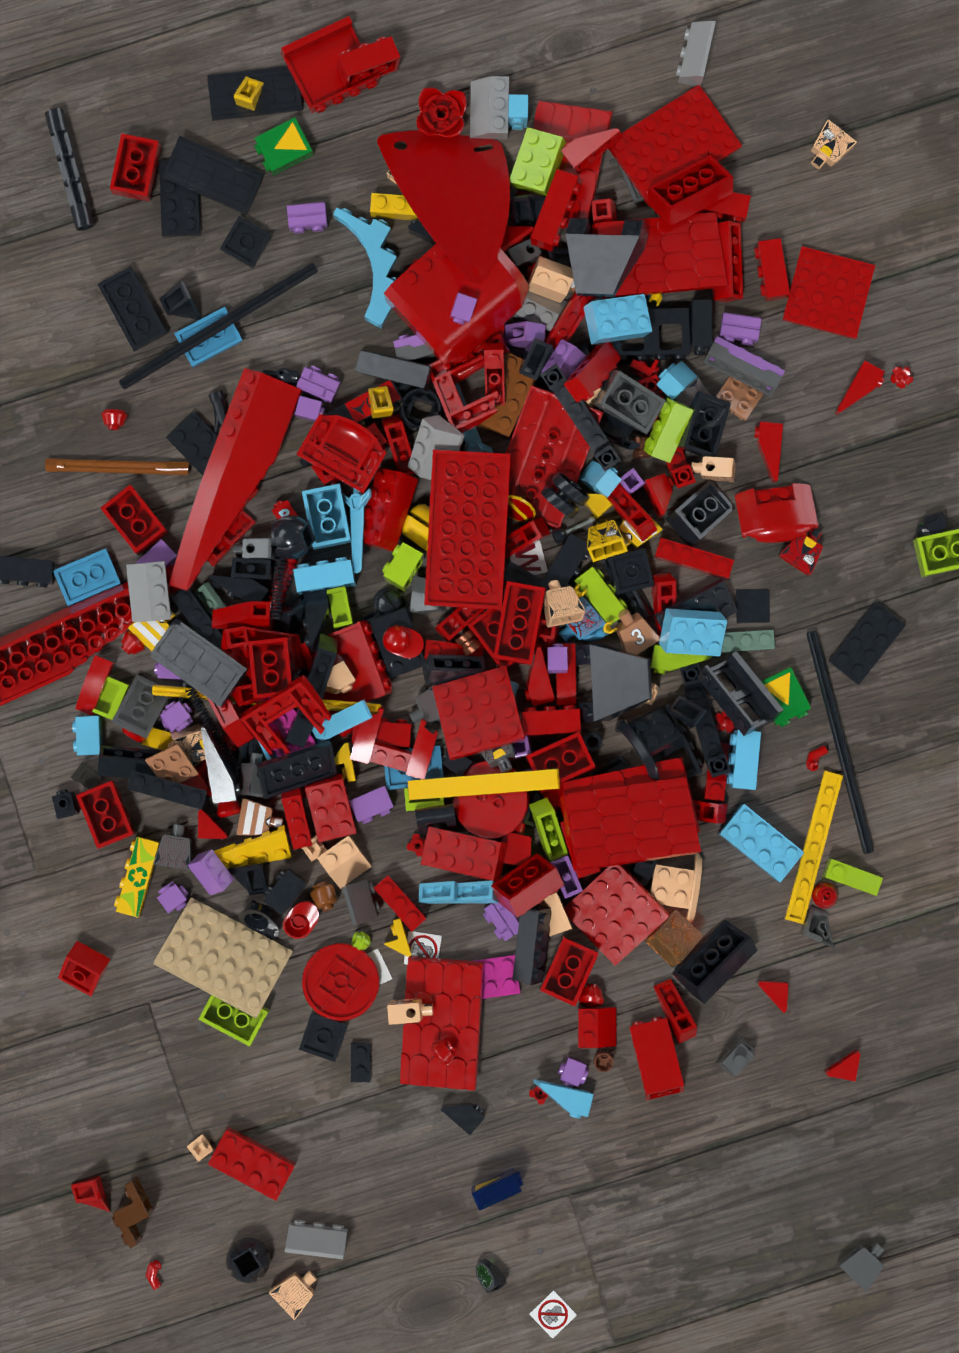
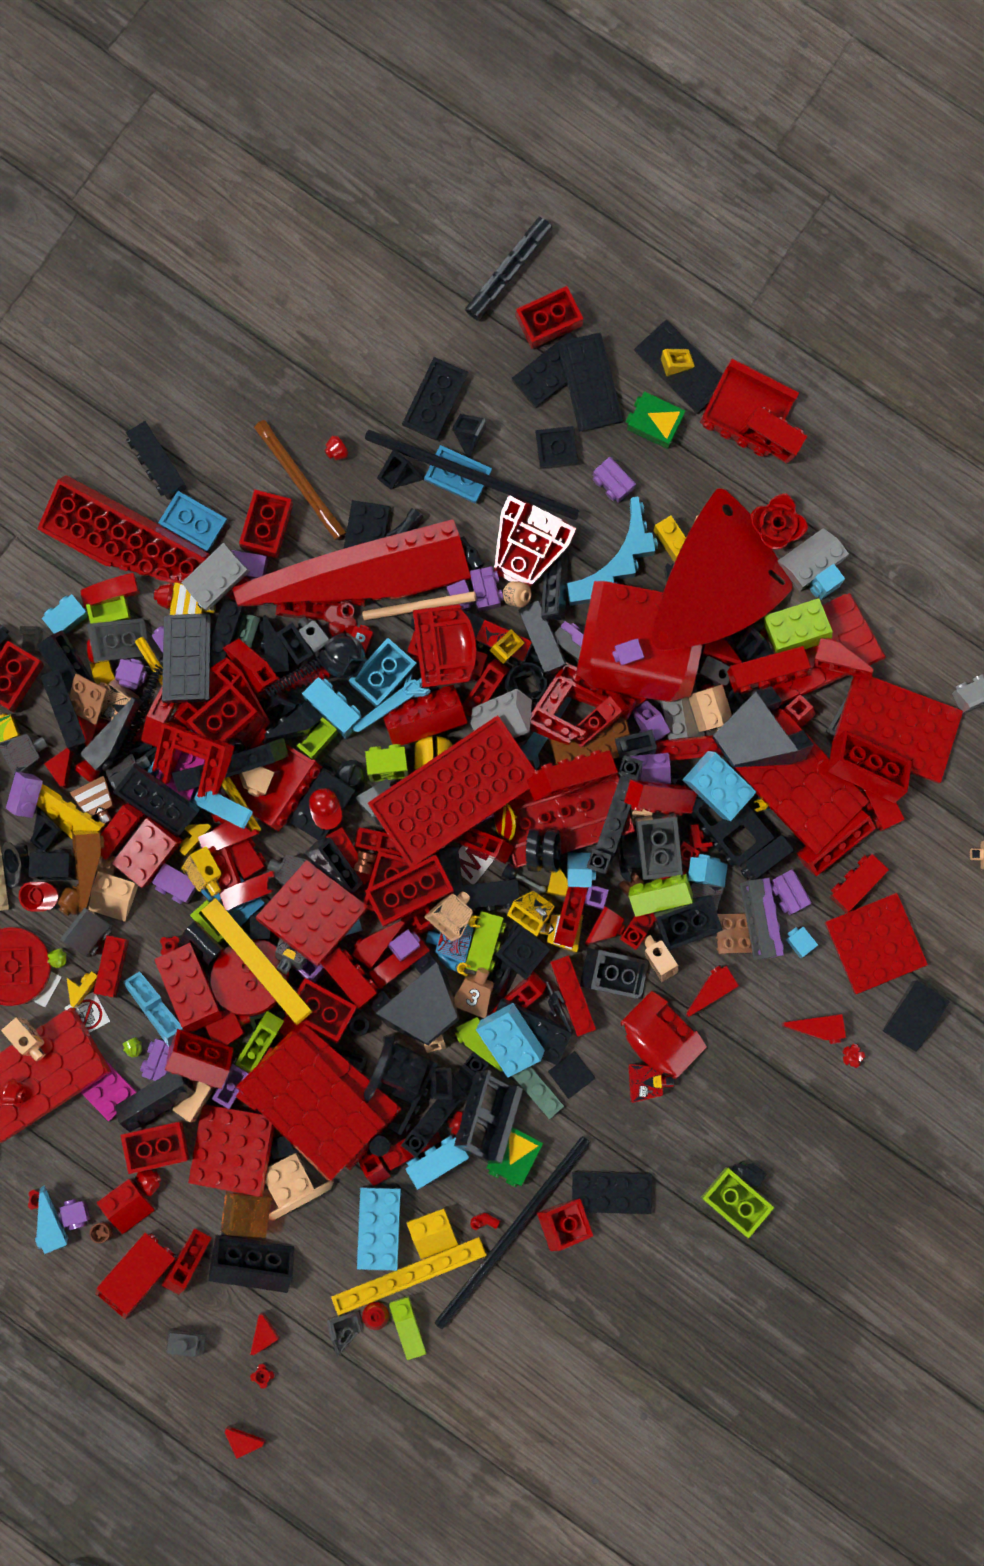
camera: 50 degrees right, 5 degrees down
(171, 383) = (398, 472): none -> black slope
(257, 519) = (338, 621): none -> red plate
(294, 446) = (409, 607): none -> light nougat piece
(296, 854) = (87, 852): none -> dark orange wedge
(307, 321) = (529, 541): none -> wedge
(342, 363) = (517, 594): none -> light nougat head
(356, 326) = (555, 589): none -> black slope
(380, 774) = (203, 871): none -> yellow torso
(476, 932) = (132, 1047): none -> lime plate
(524, 427) = (571, 775): none -> red brick
(686, 574) = (555, 1001): none -> black piece
(699, 794) = (379, 1145): none -> black wheel
(784, 349) = (801, 941): none -> medium azure brick
(794, 804) = (432, 1233): none -> yellow slope
(806, 1021) = (262, 1382): none -> red plate
(865, 697) = (565, 1225): none -> red slope
(907, 304) = (915, 1015): none -> black slope

